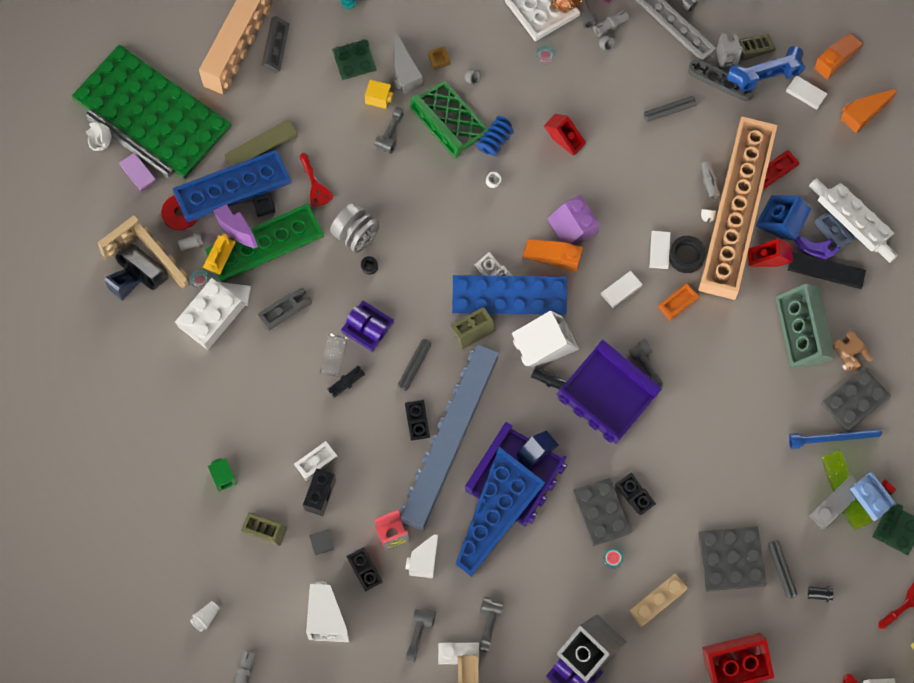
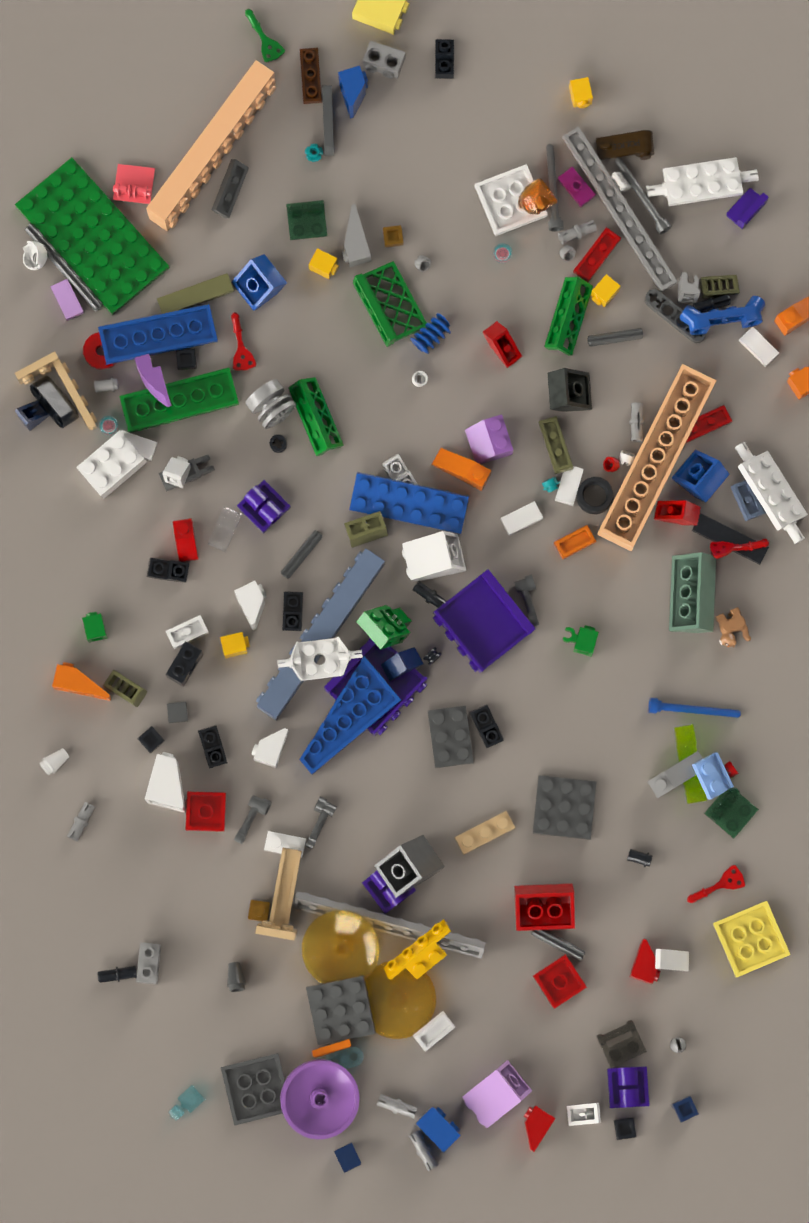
camera: 10 degrees right, 10 degrees up
(182, 57) = (133, 184): none -> coral hinge
(209, 531) = (74, 681): none -> orange slope
(219, 254) = (132, 405): yellow hinge -> none
(275, 307) = (177, 471): none -> white slope
(284, 405) = (167, 570): none -> black slope
(296, 372) = (185, 540): none -> red slope
(300, 575) = (151, 739): none -> black tile
(319, 121) = (258, 281): none -> blue slope
(346, 381) = (231, 558): black pin -> none
(366, 463) = (234, 644): none -> yellow brick
(370, 636) = (205, 811): none -> red plate
(374, 417) = (252, 602): none -> white slope
(386, 142) = (320, 317): dark grey brick -> none
(387, 522) = (241, 707): coral piece -> none
(397, 233) = (312, 415): none -> green fence
(466, 447) = (333, 650): none -> white plate
(513, 414) = (385, 625): none -> green piece
(565, 436) = (432, 656): none -> black bush
(613, 558) = (450, 784): tile -> none
(618, 95) = (565, 313): none -> green fence
(634, 40) = (597, 255): none -> red tile
(638, 163) = (569, 390): none -> pearl dark grey slope
(638, 215) = (555, 445): none -> olive tile
(642, 252) = (550, 484): none -> teal plate
(650, 69) = (605, 291): none -> yellow brick
(694, 220) = (611, 460): none -> red hinge
(711, 392) = (584, 641): none -> green brick
(752, 61) = (712, 303): none -> black axle
(782, 569) = (610, 830): dark grey axle -> none
(819, 250) = (725, 516): dark purple piece -> none
(824, 278) = (722, 548): none -> red piece
(856, 399) = (724, 676): dark grey plate -> none

